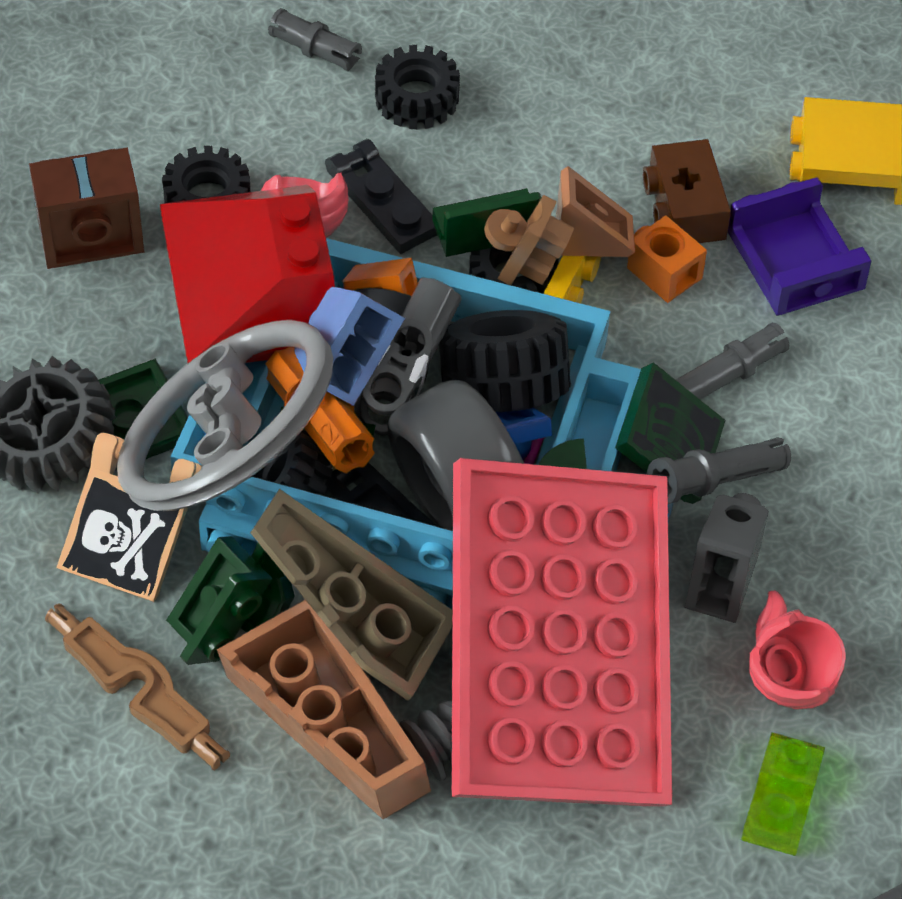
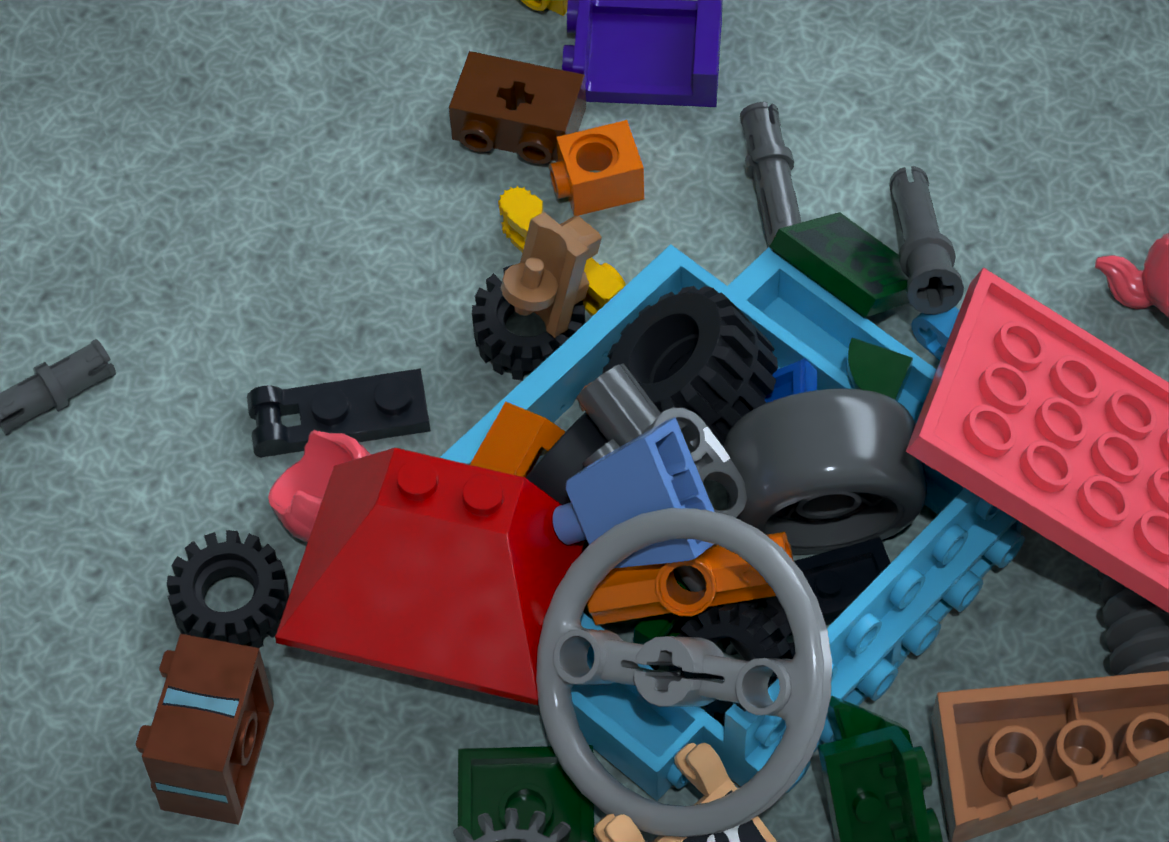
camera: 60 degrees left, 5 degrees up
(367, 605) = (973, 640): dark tan wedge -> none
(417, 67) = (192, 278): black tyre -> none
(463, 223) = (470, 311): dark green panel -> none
(597, 220) = (532, 193): nougat slope -> none
(731, 530) = (1040, 262): dark grey torso -> none

